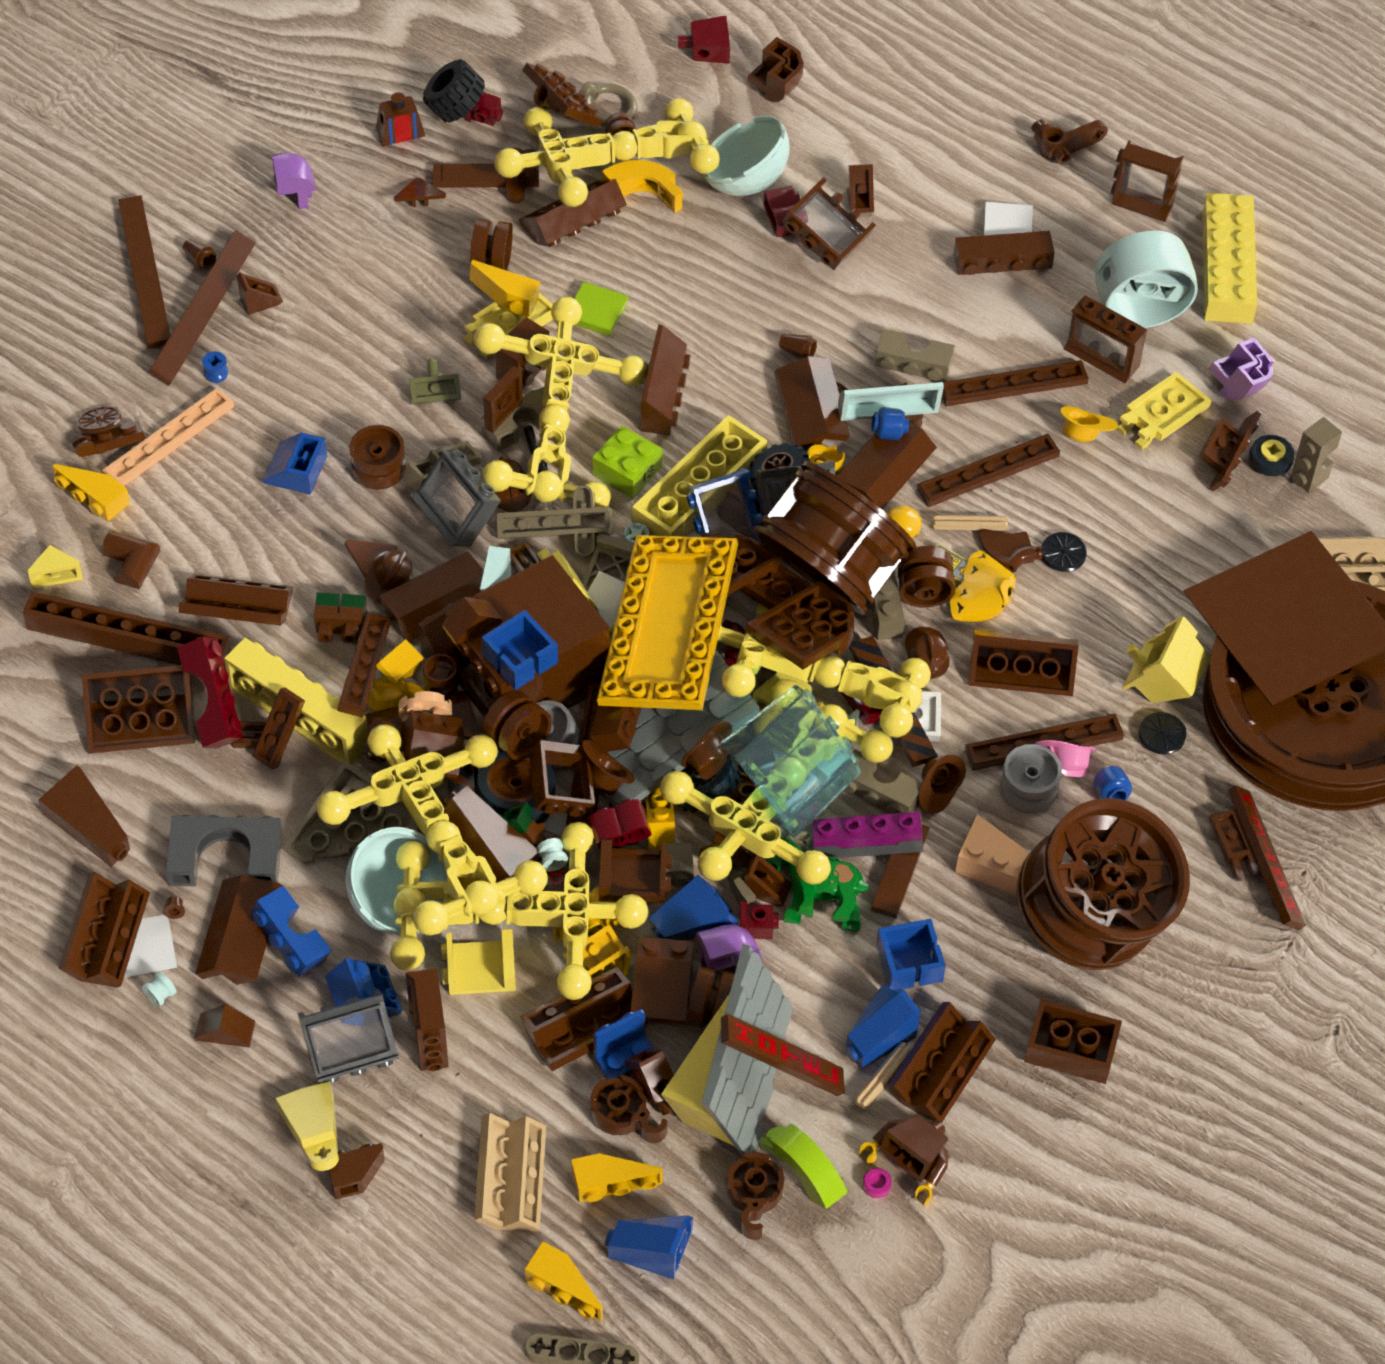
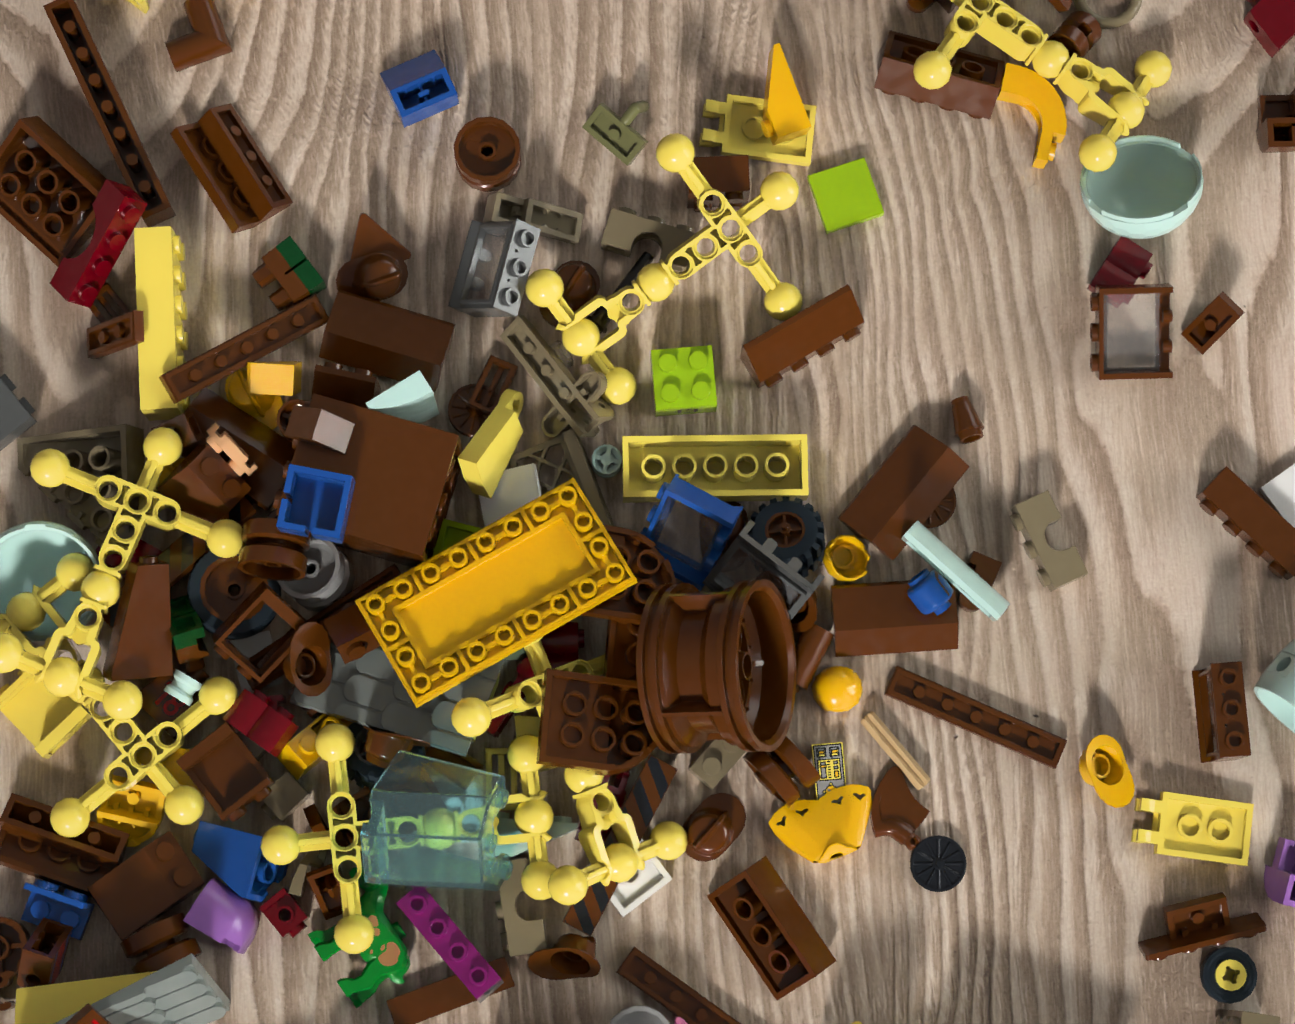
camera: 45 degrees right, 25 degrees up
(491, 245) = (818, 42): reddish brown wheel -> none
(503, 399) = (632, 218): reddish brown tile -> none
(1014, 383) = (1104, 658): reddish brown tile -> none

